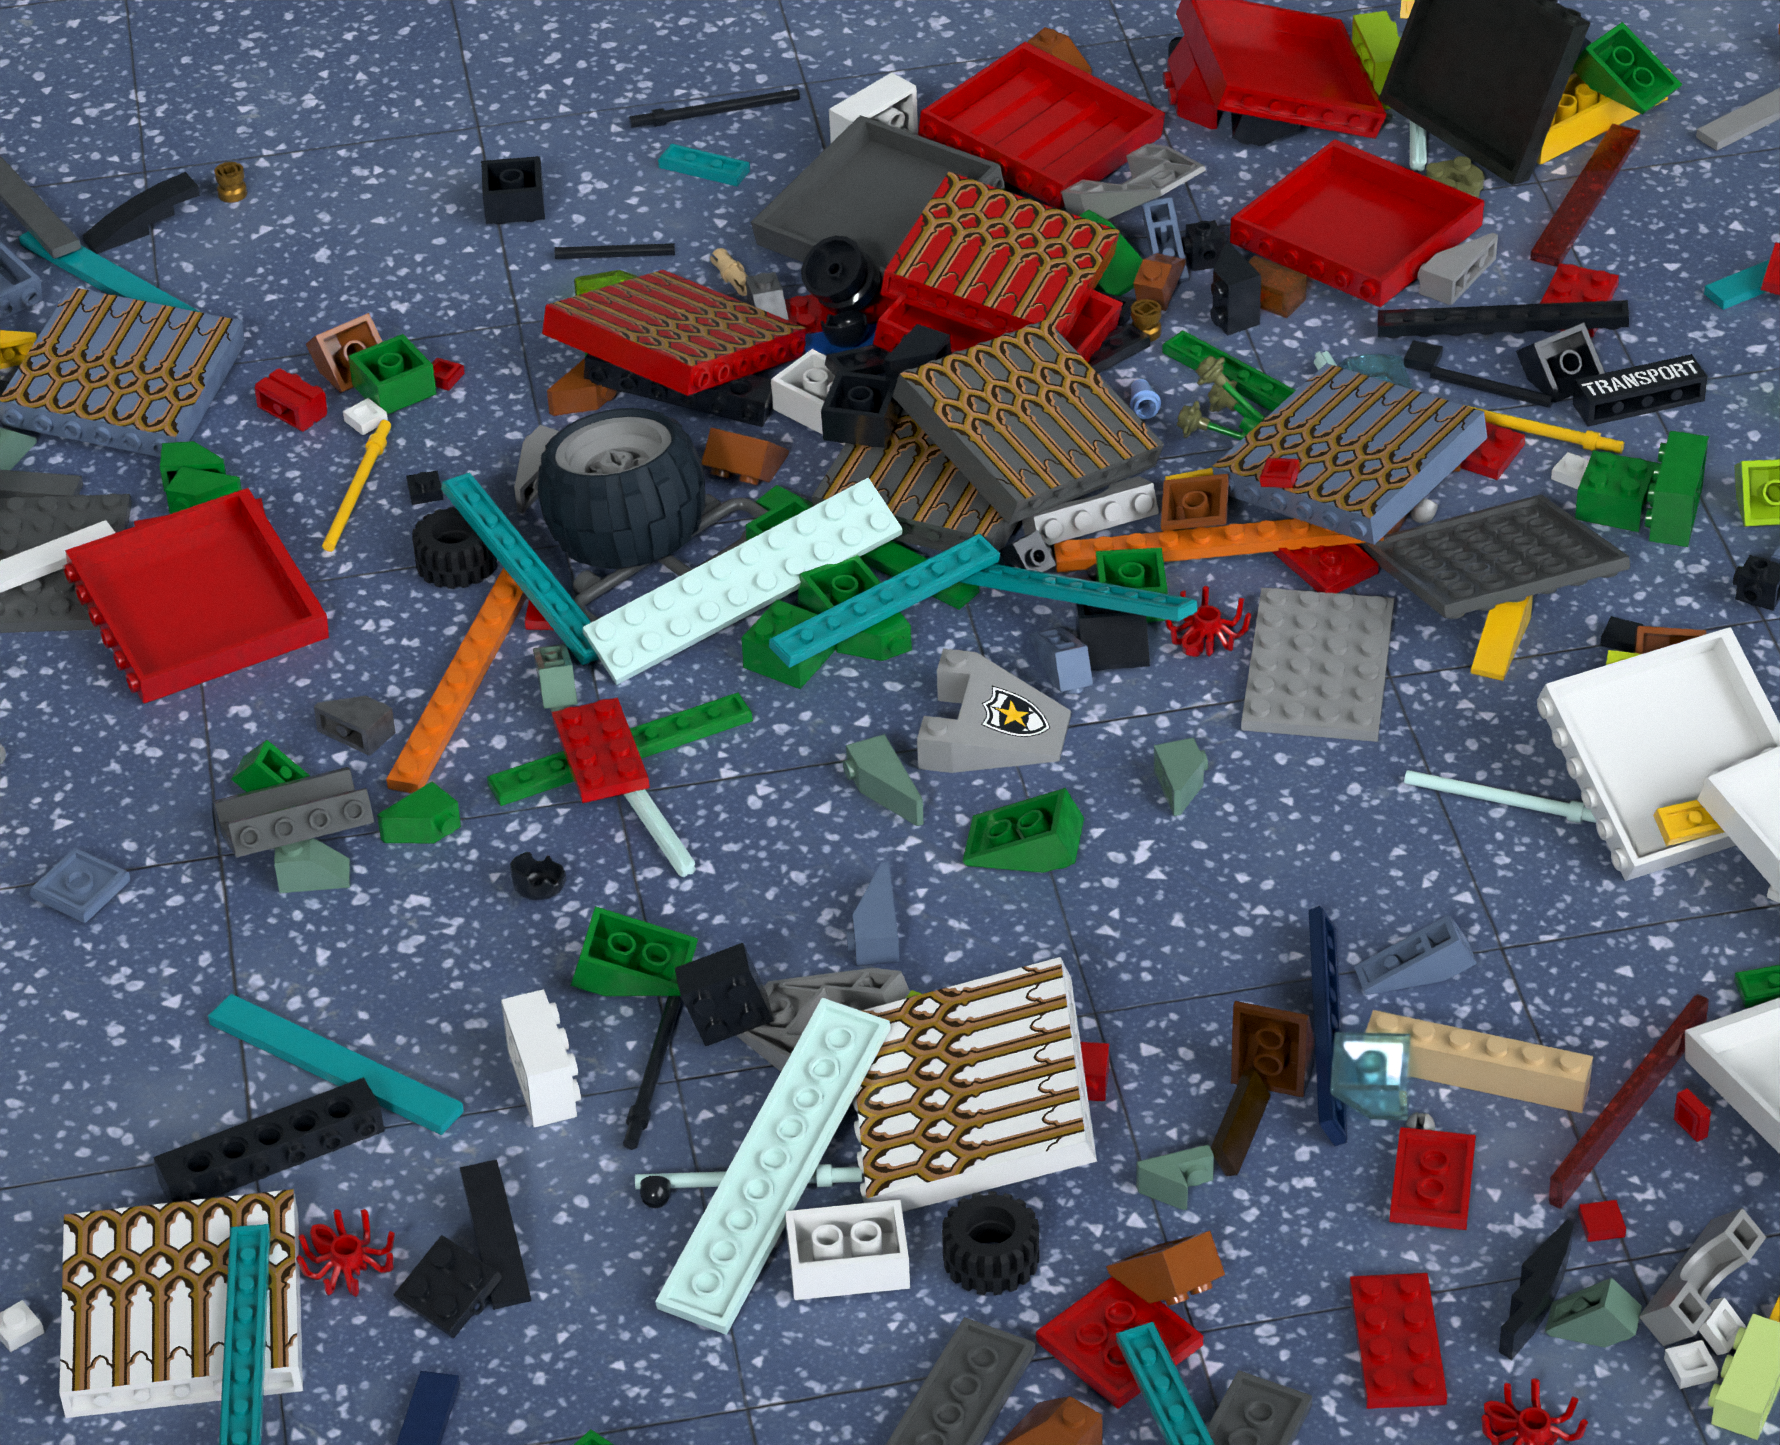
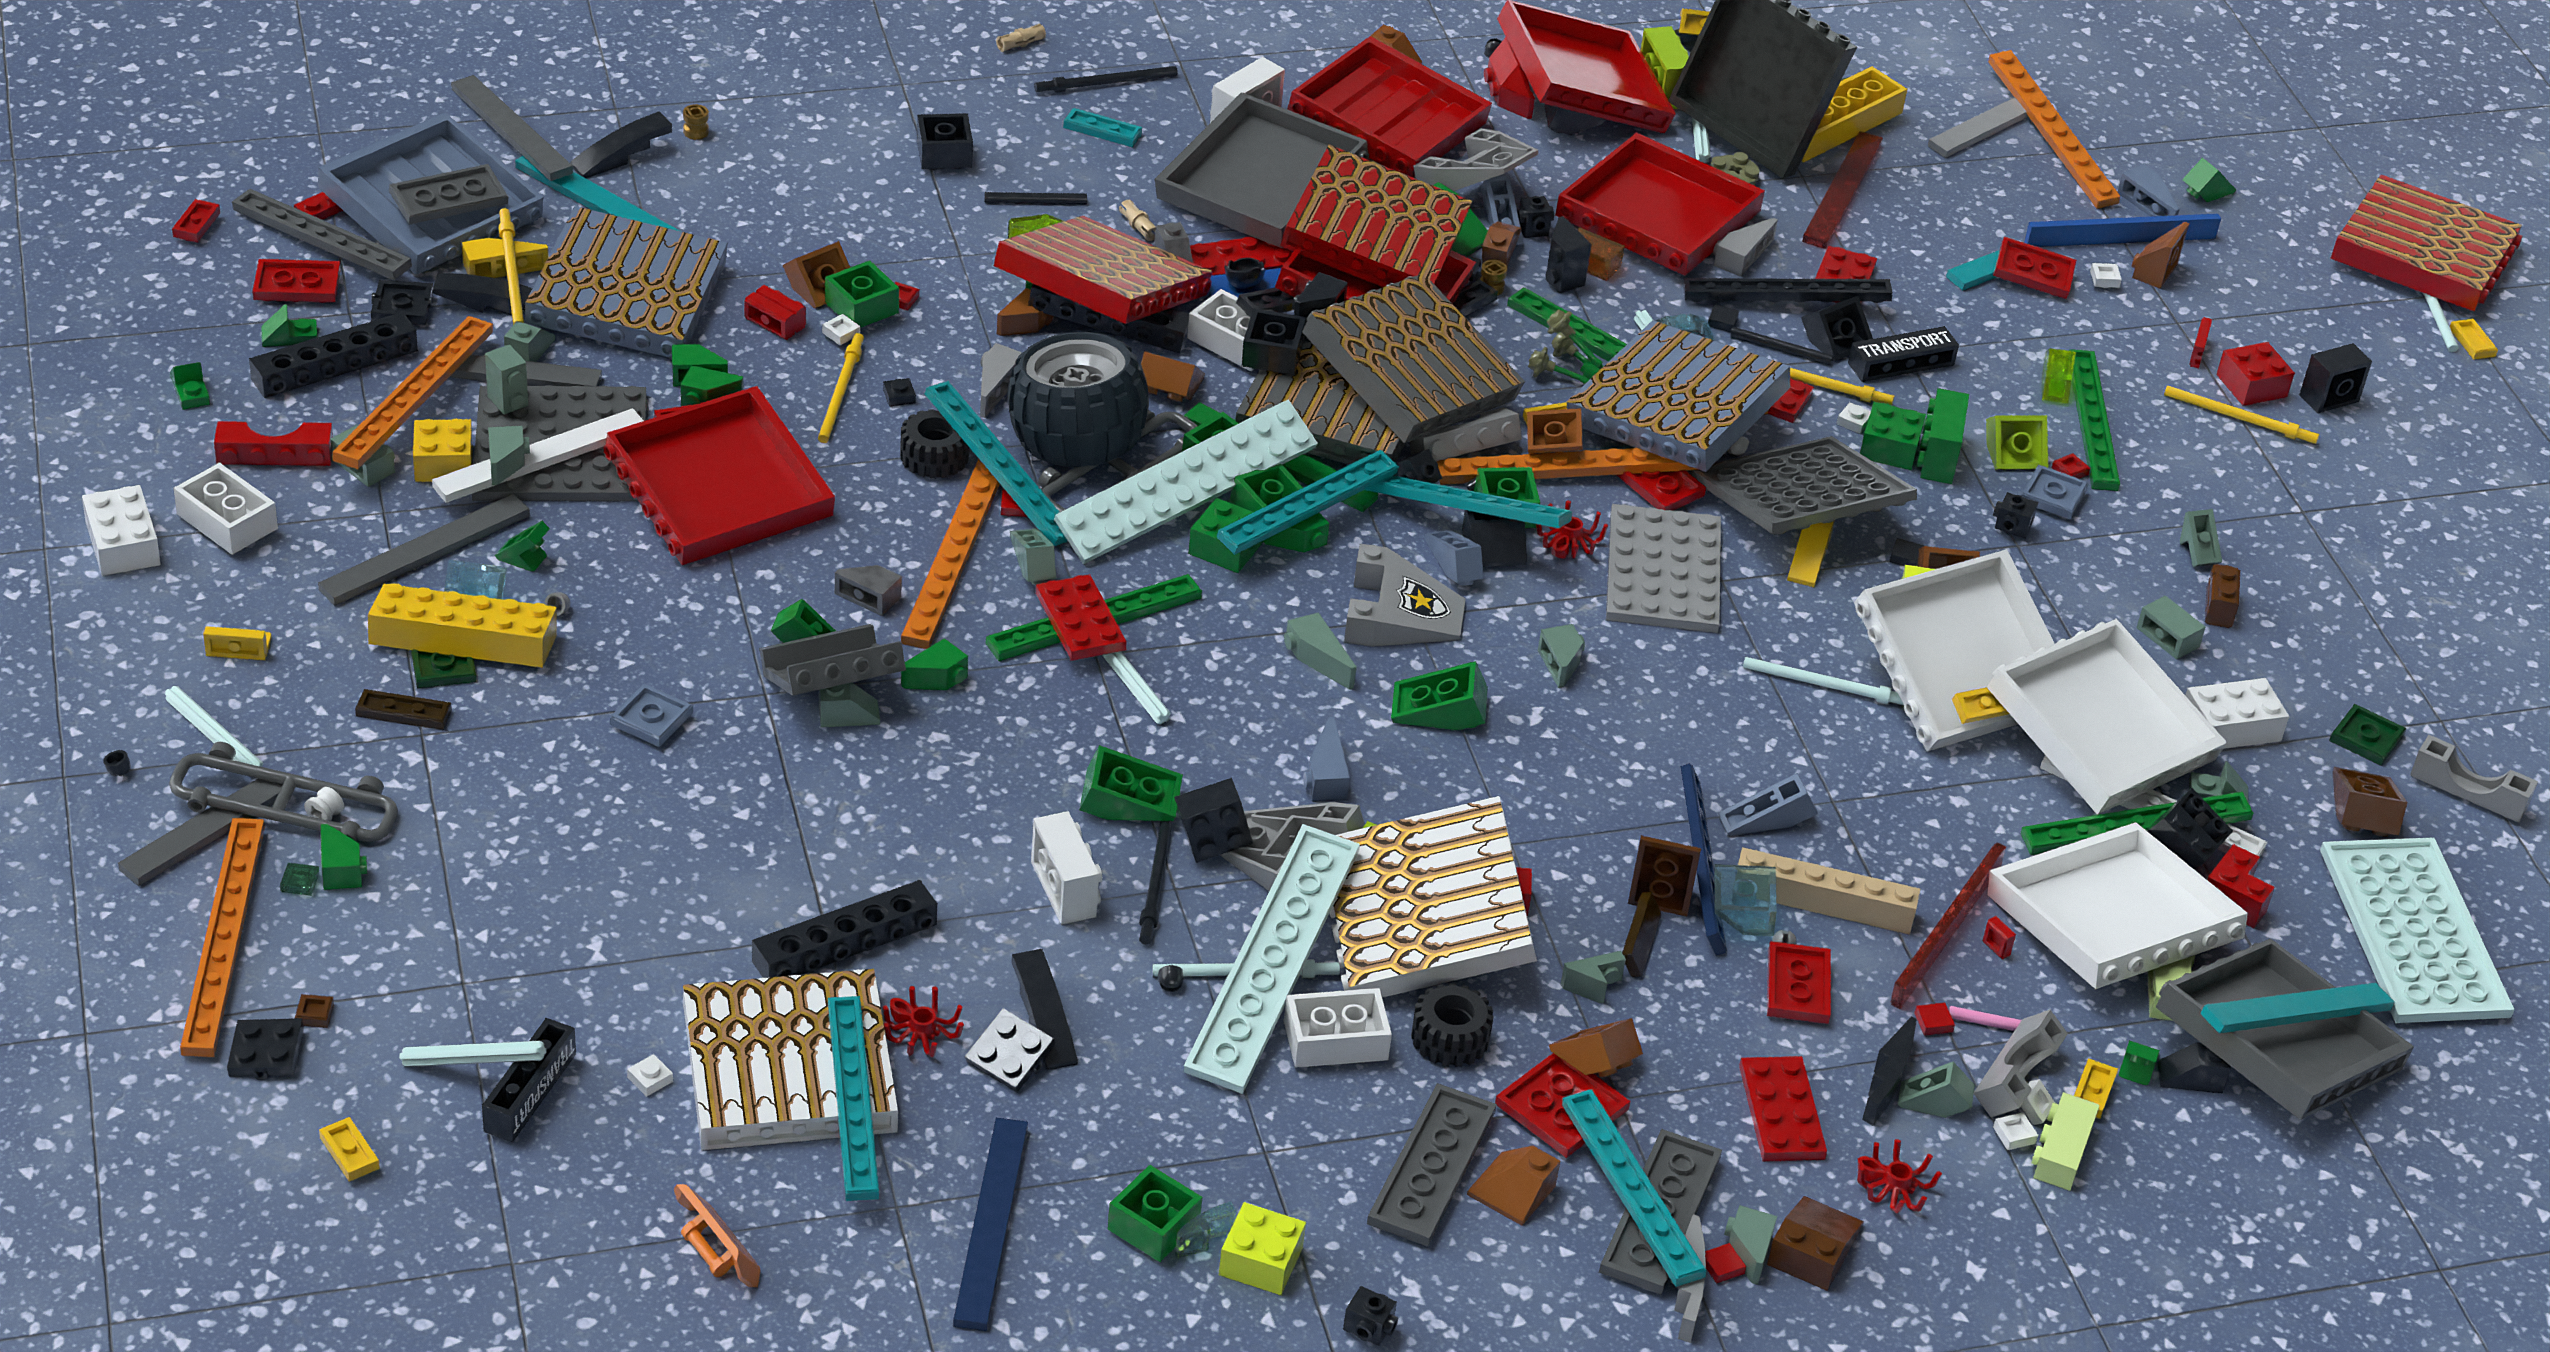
camera: 10 degrees left, 0 degrees up
(335, 1063) = (887, 867): teal tile -> none
(536, 878) = (1040, 721): black hair -> none
(621, 65) = (1020, 37): none -> tan pin
(840, 274) = (1239, 227): black wheel -> none
(1144, 399) = (1499, 341): light blue cone -> none
(1279, 472) = (1625, 409): red tile -> none
(1625, 70) = (1875, 88): green slope -> none
(1663, 1218) = (1984, 1018): none -> bright pink bar

